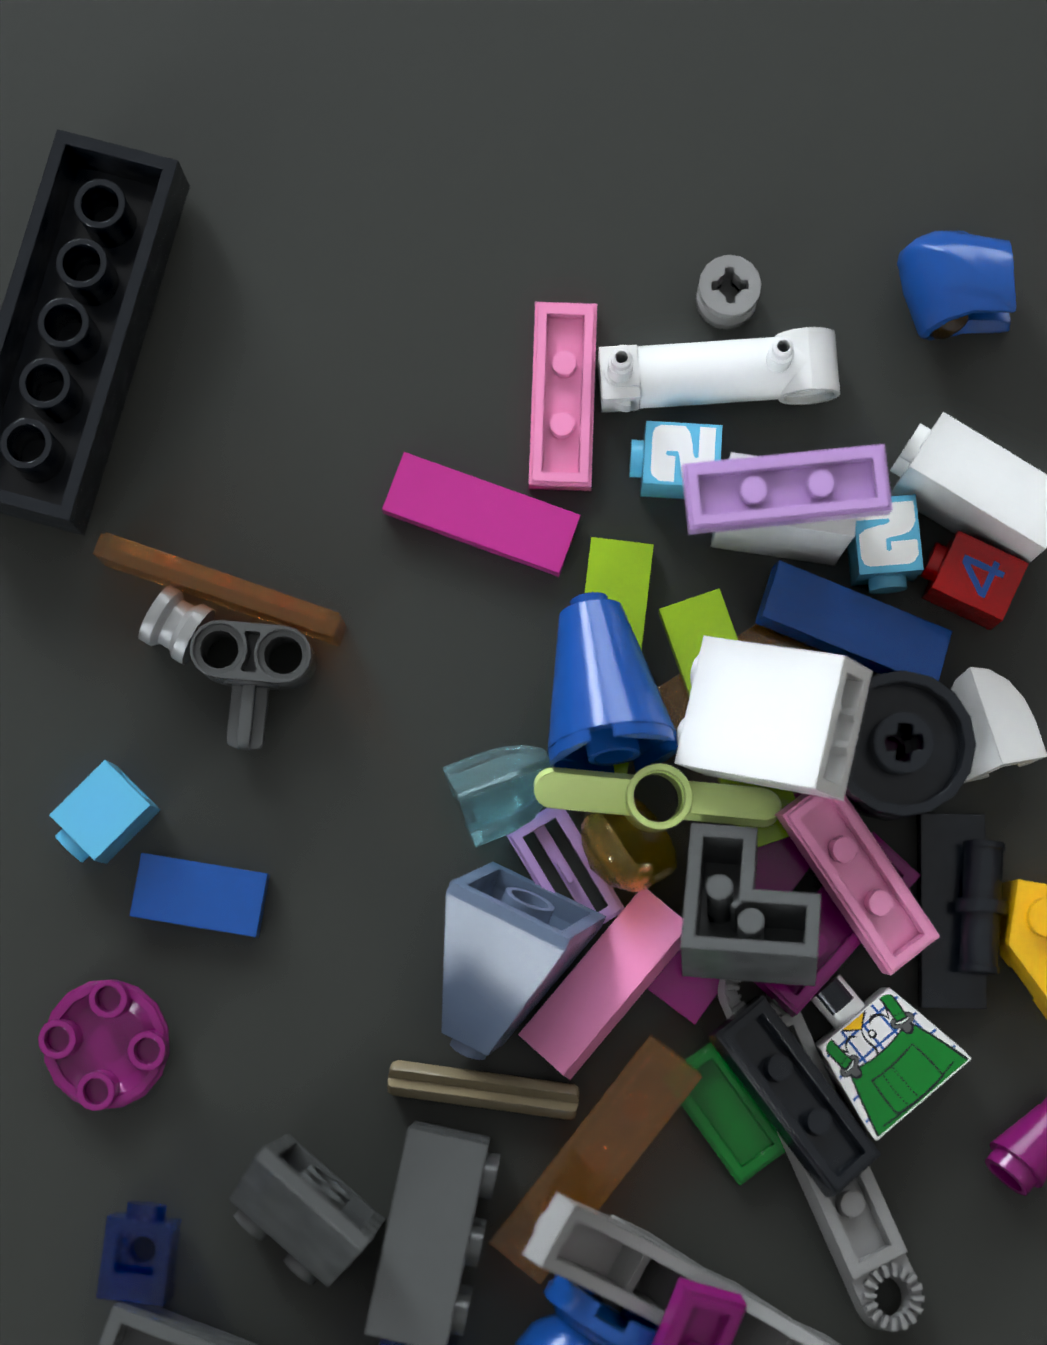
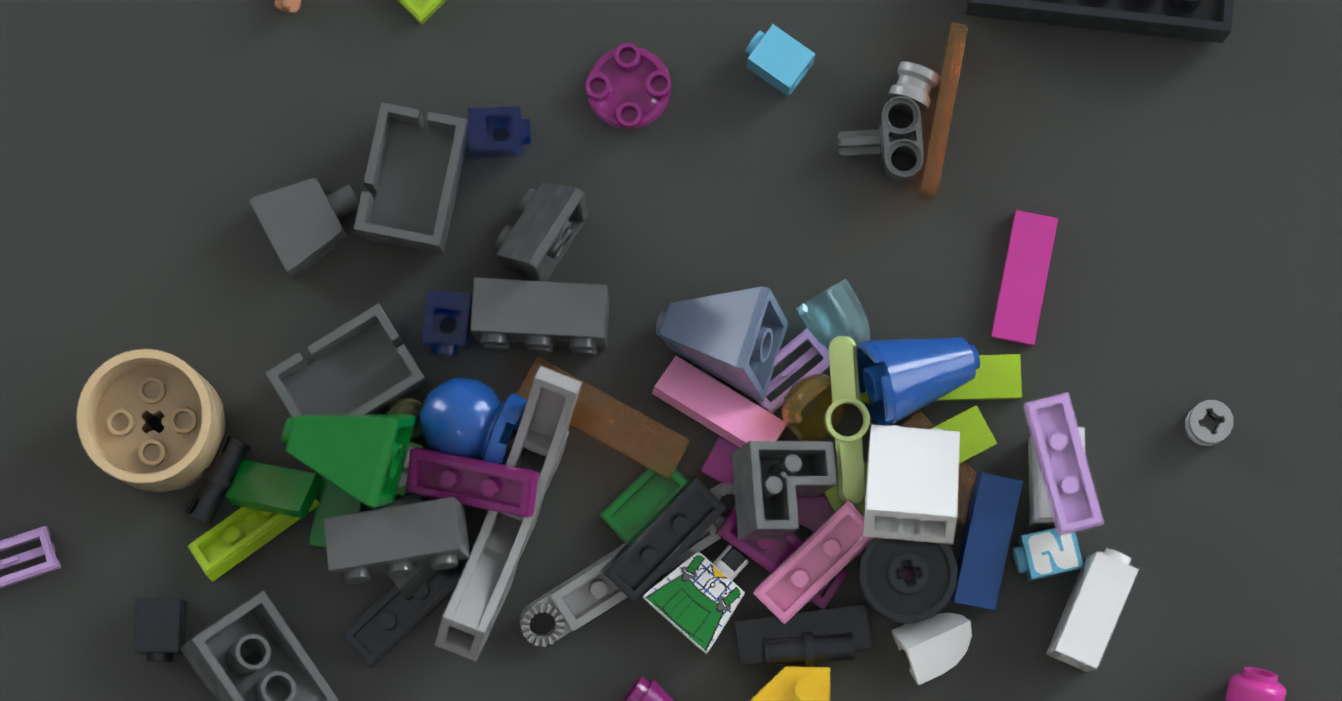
camera: 80 degrees right, 0 degrees up
(199, 895) = (735, 132): blue tile -> none
(483, 1089) = (636, 338): dark tan axle -> none
(563, 396) = (1116, 321): bright pink tile -> none
(665, 449) = (1087, 400): brick -> none
(789, 368) = (1160, 469): white piece -> none
(958, 284) = (1240, 580): blue piece -> none
(972, 579) = (1033, 617): red brick -> none

